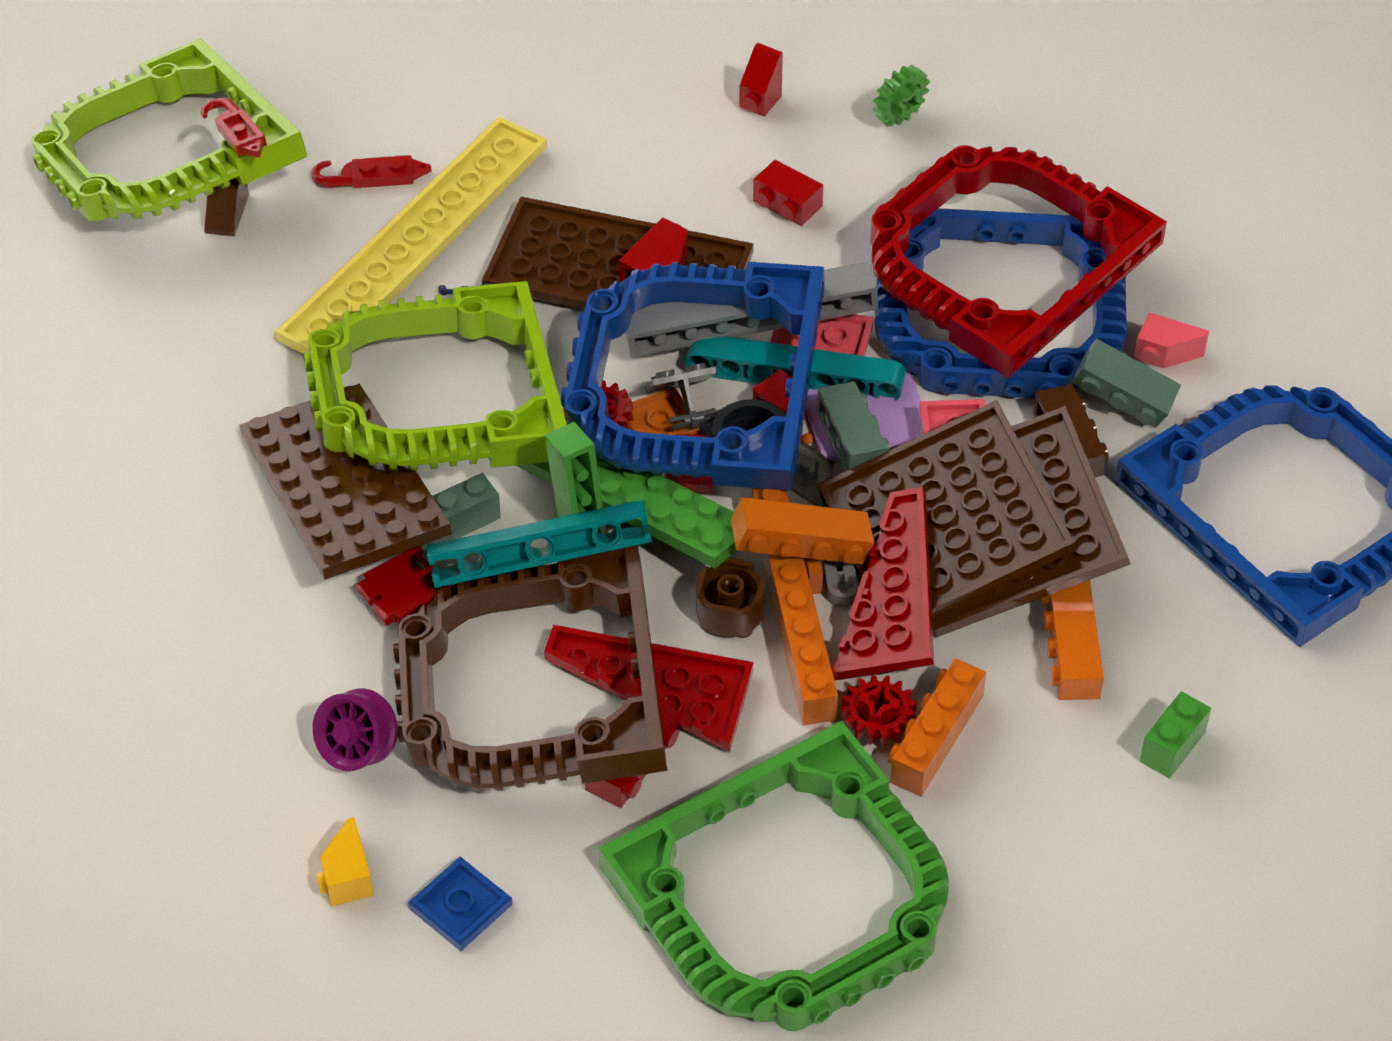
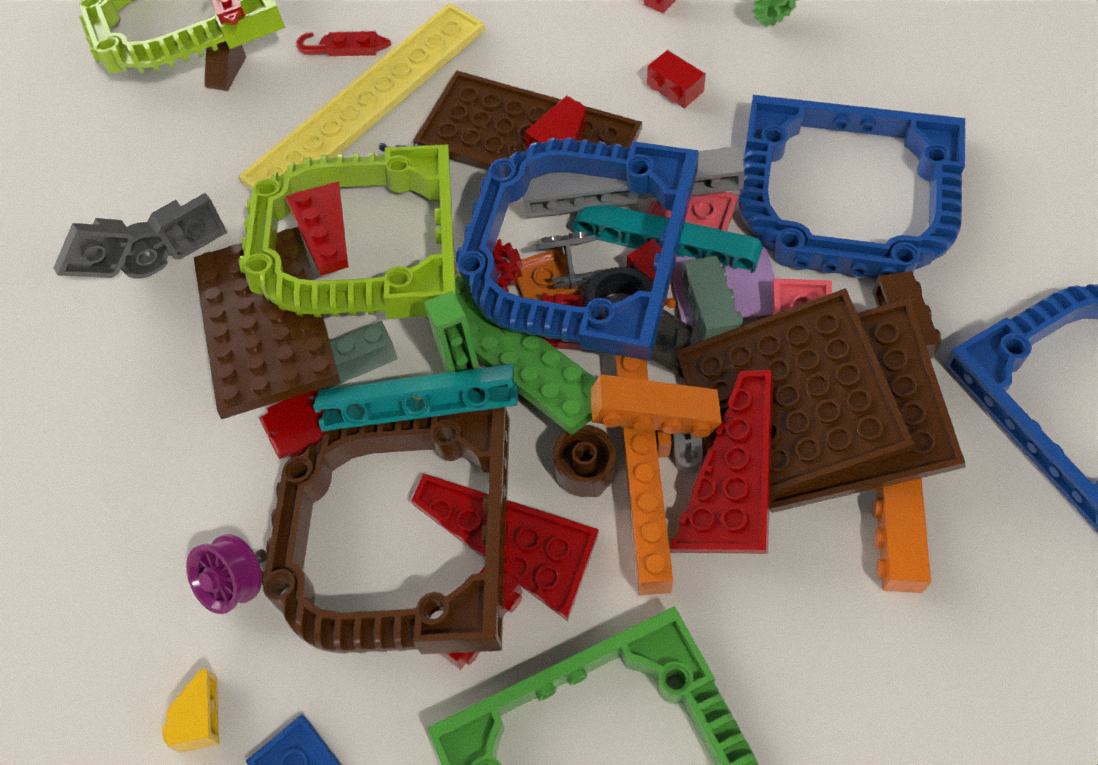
camera: 10 degrees right, 10 degrees up
(176, 416) = (141, 247): none -> dark grey plate
(402, 372) = (321, 224): none -> red wing
(863, 703) = (724, 595): red gear -> none
(937, 726) = (766, 616): orange brick -> none
(991, 334) = (832, 212): red arch -> none
(1126, 383) = (961, 274): sand green brick -> none
(1169, 342) = (999, 234): coral slope -> none
(1175, 734) = (998, 648): bright green brick -> none

